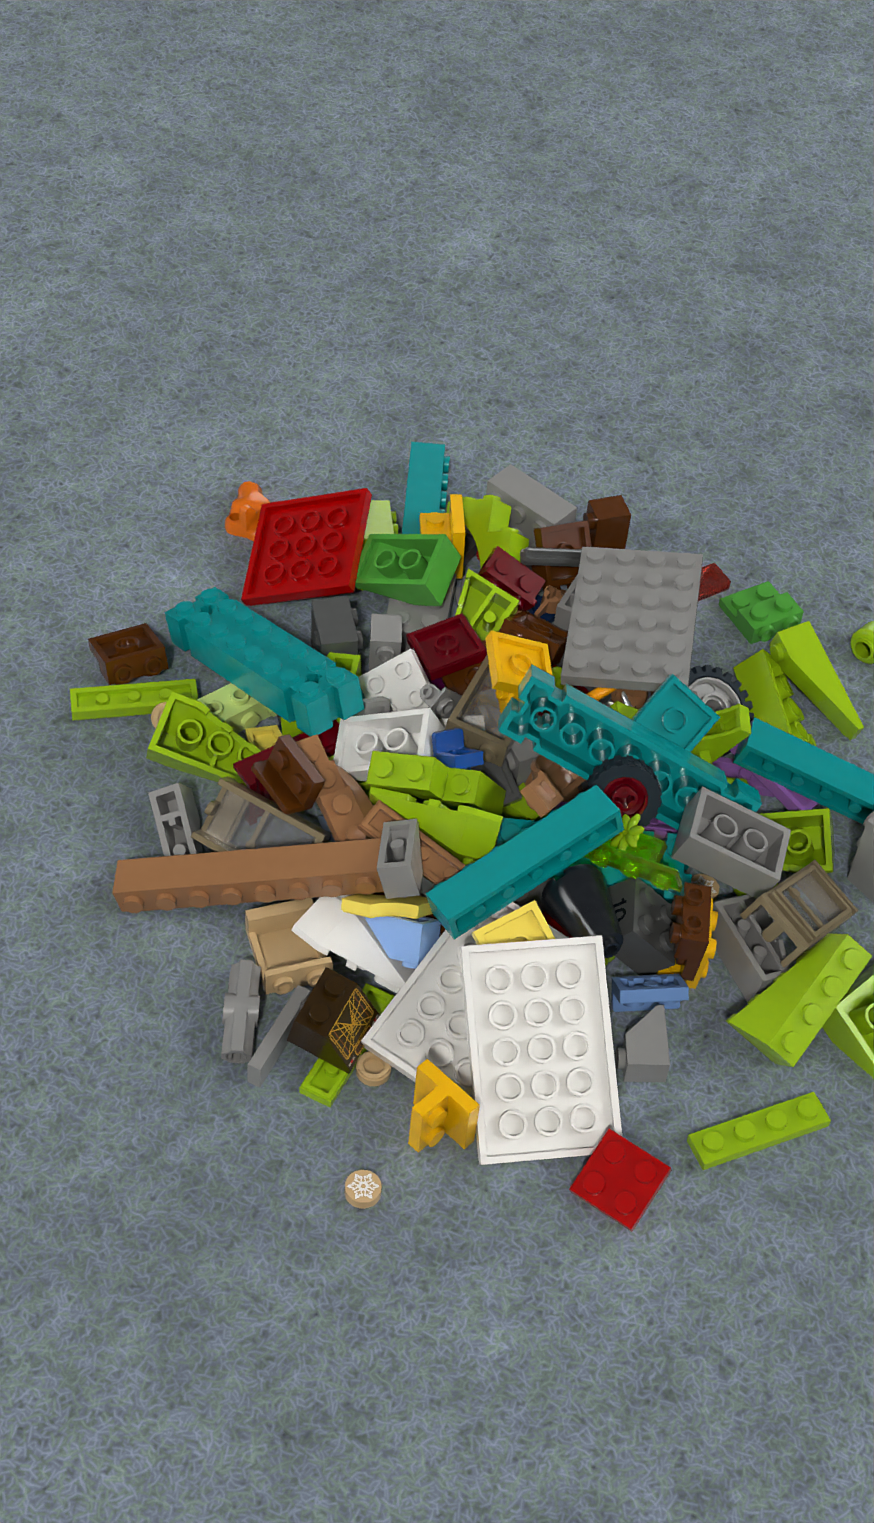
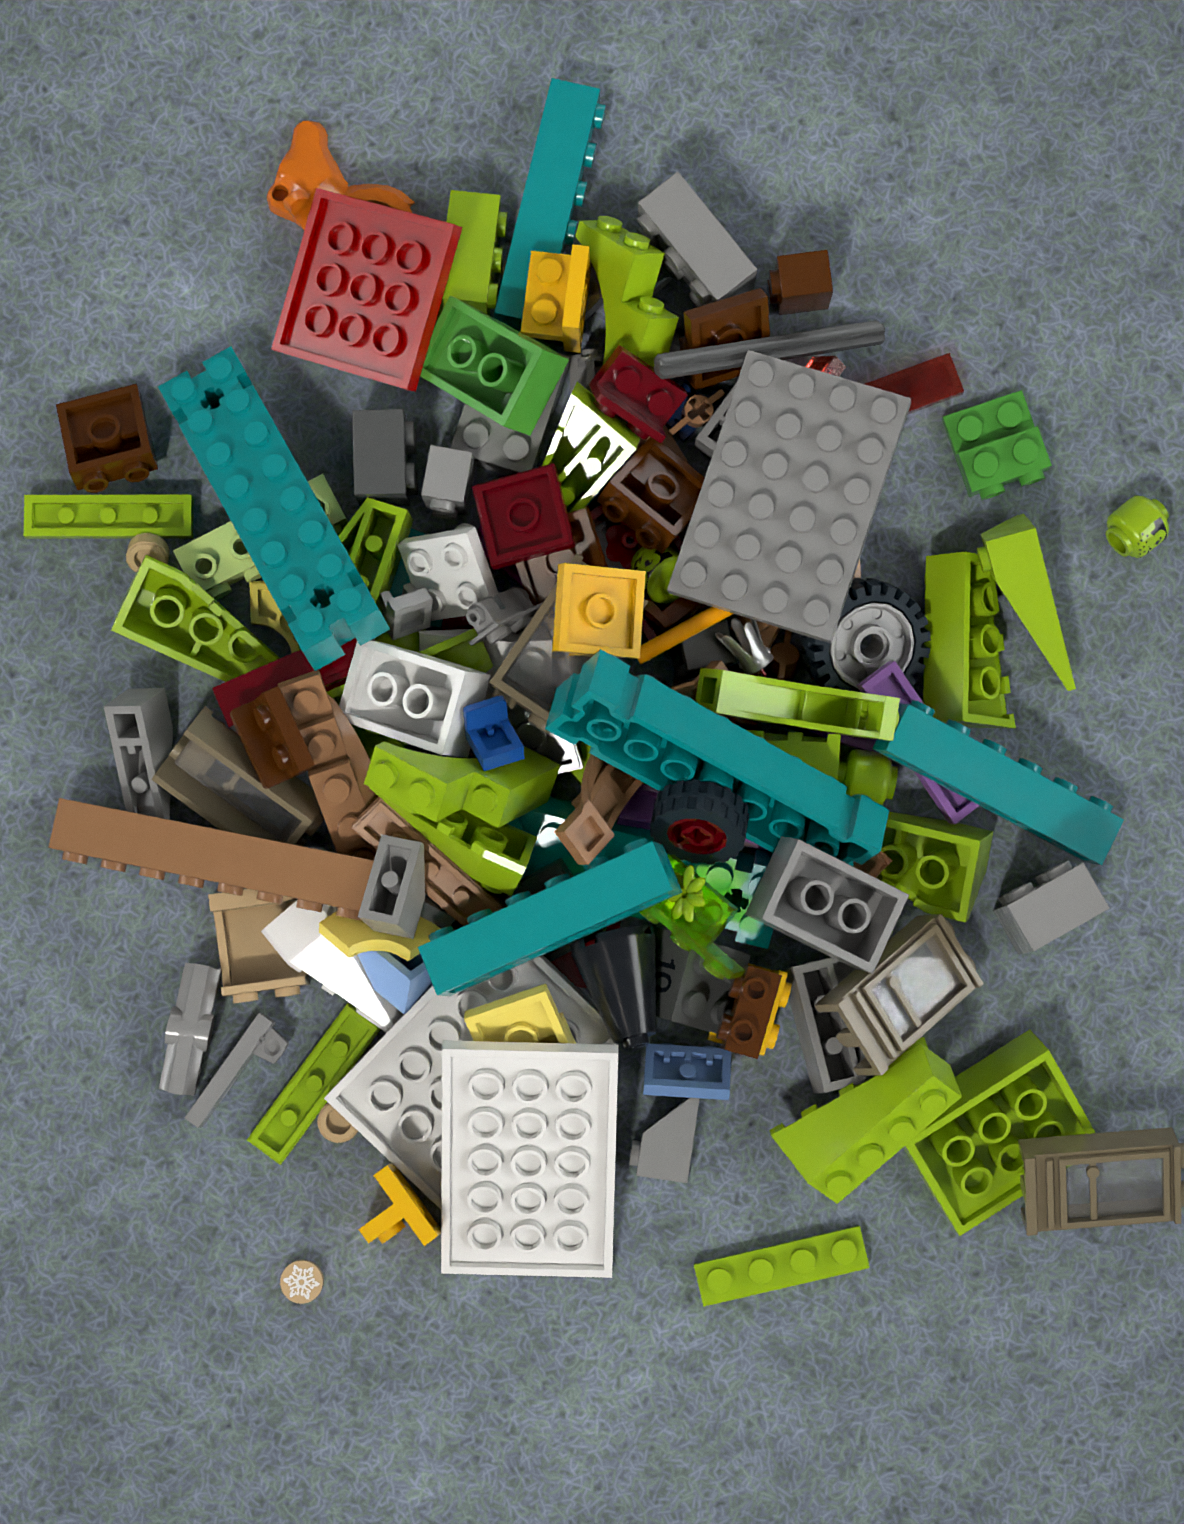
camera: 20 degrees right, 35 degrees up
(334, 1021) = (294, 1073): dark brown slope -> none
(620, 1179) = (598, 1317): red plate -> none
(677, 714) = (793, 709): teal tile -> none

